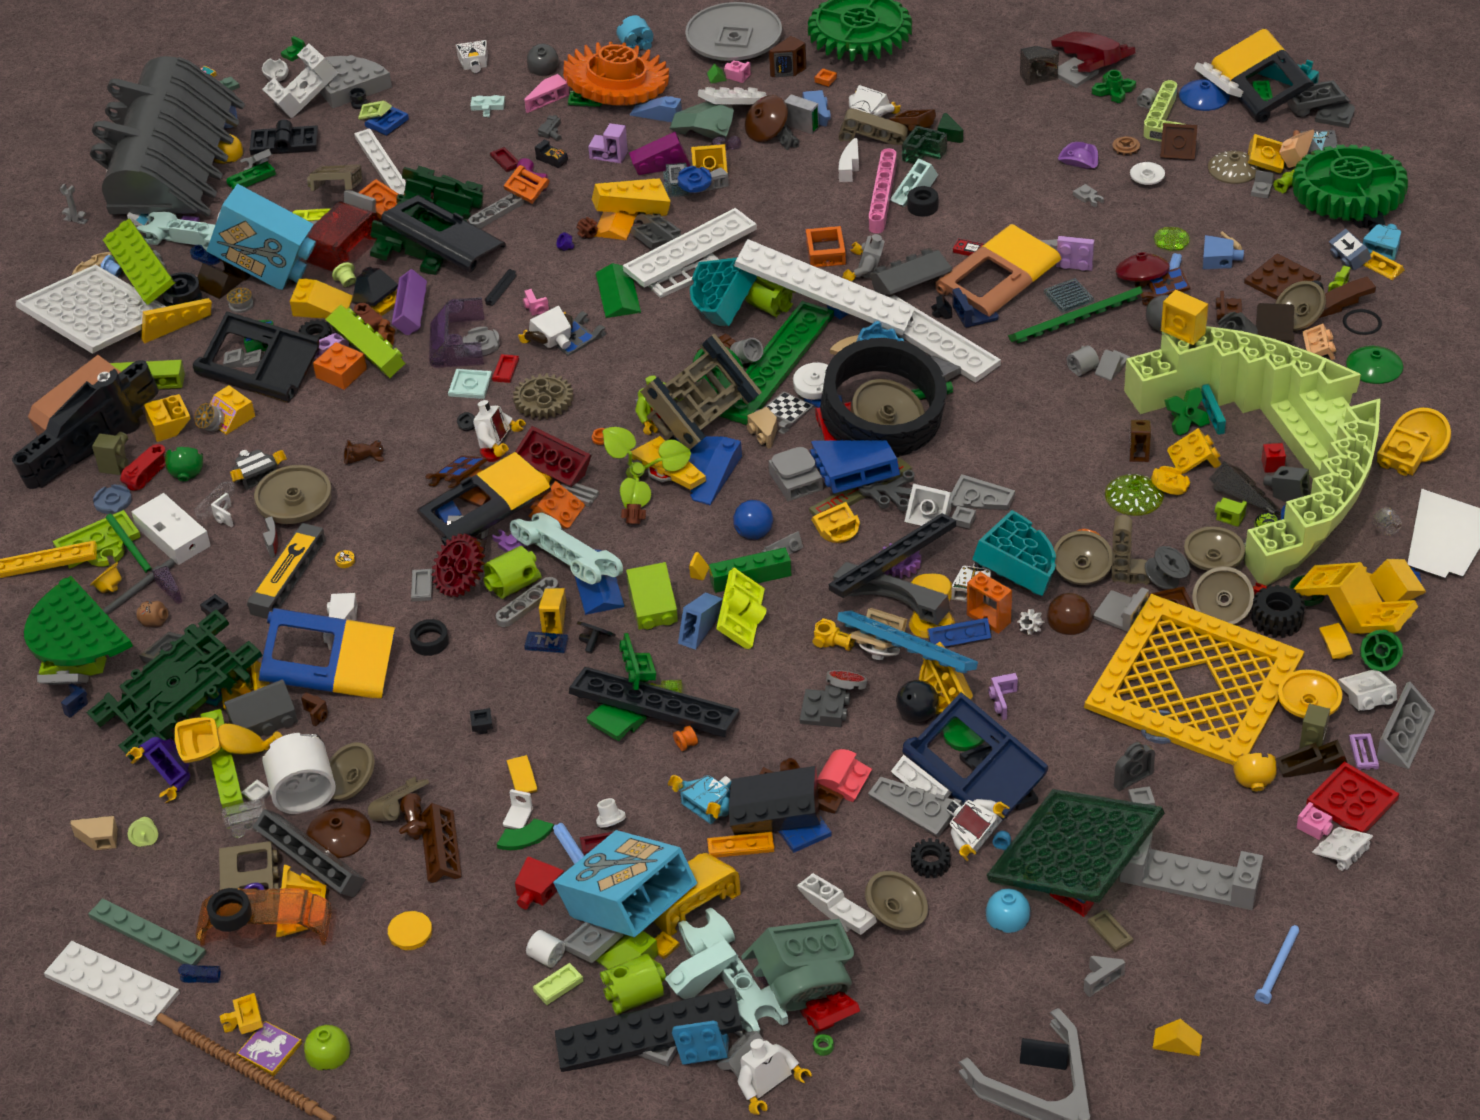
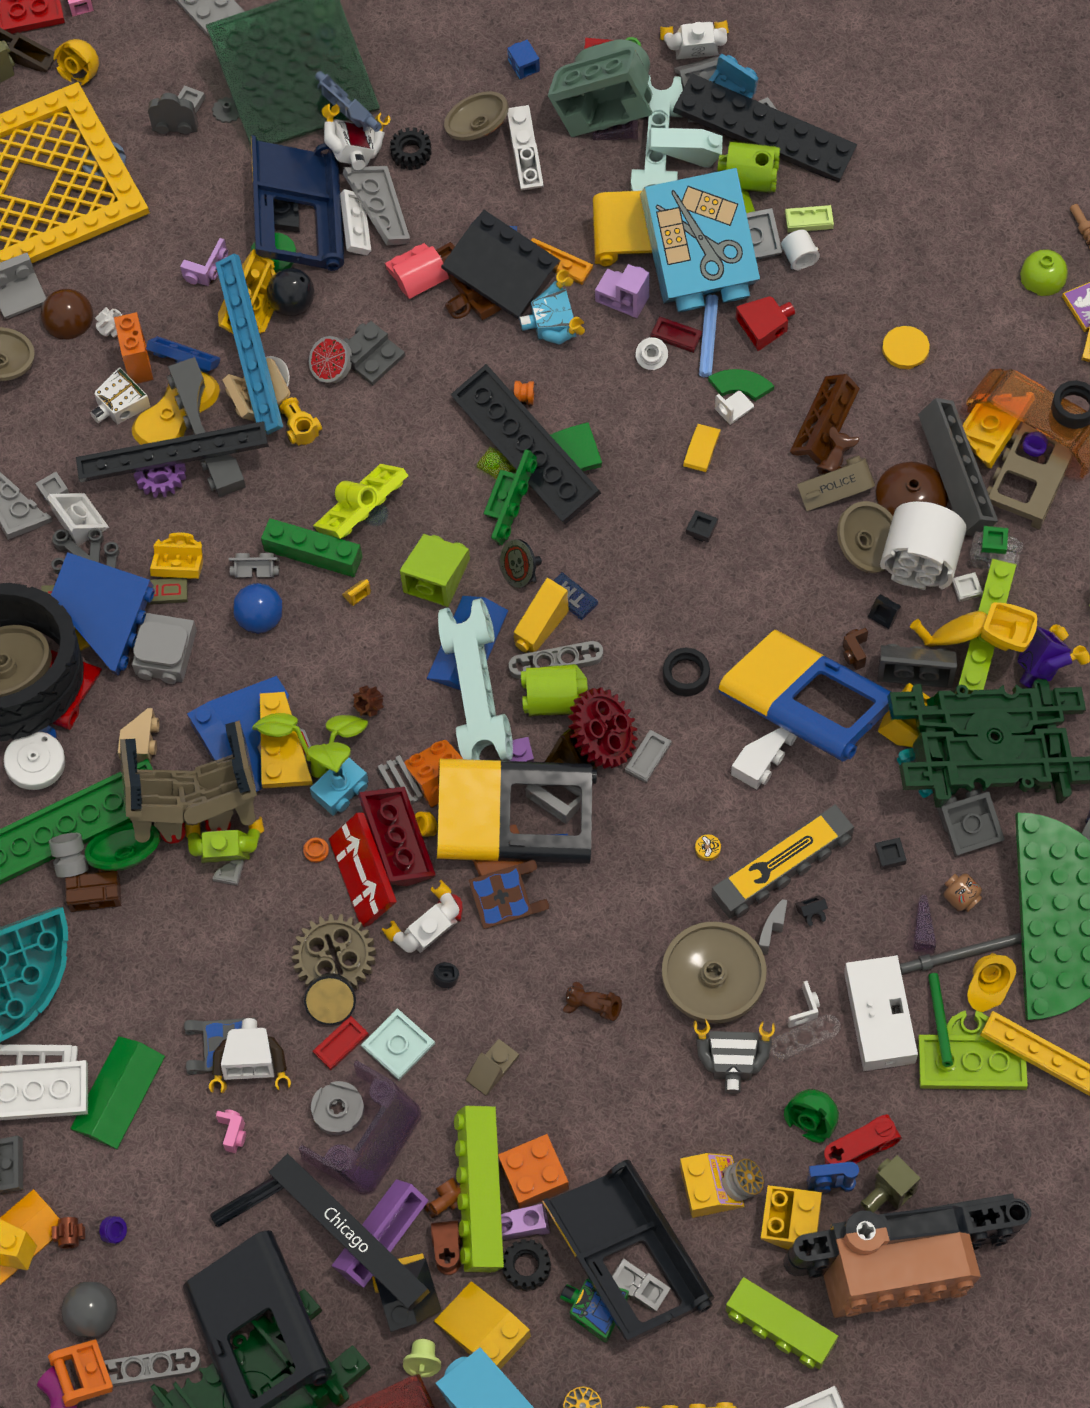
camera: 145 degrees left, 20 degrees up
(112, 499) = (922, 1136): sand blue tile -> none
(157, 432) = (836, 1175): none -> blue plate
(246, 806) = (994, 540): none -> green plate
(252, 559) = (812, 906): none -> black tile
(403, 400) = (491, 1067): none -> dark tan slope
(421, 280) = (349, 1232): none -> black tile
(525, 373) = (330, 999): none -> pearl gold tile
(545, 207) = (89, 1309): none -> dark grey piece
(559, 433) = (362, 870): none -> red tile
(611, 470) = (336, 789): none -> medium azure brick
(655, 829) = (624, 290): none -> lavender brick
(698, 619) = (405, 516): medium blue slope -> none
(788, 410) = (91, 758): flag -> none
(904, 976) = (523, 59): none -> blue brick
(1008, 910) = (390, 68): medium azure cylinder -> none
(1014, 839) = (352, 110): none -> sand blue plate
(1018, 553) = (50, 391): teal brick -> none

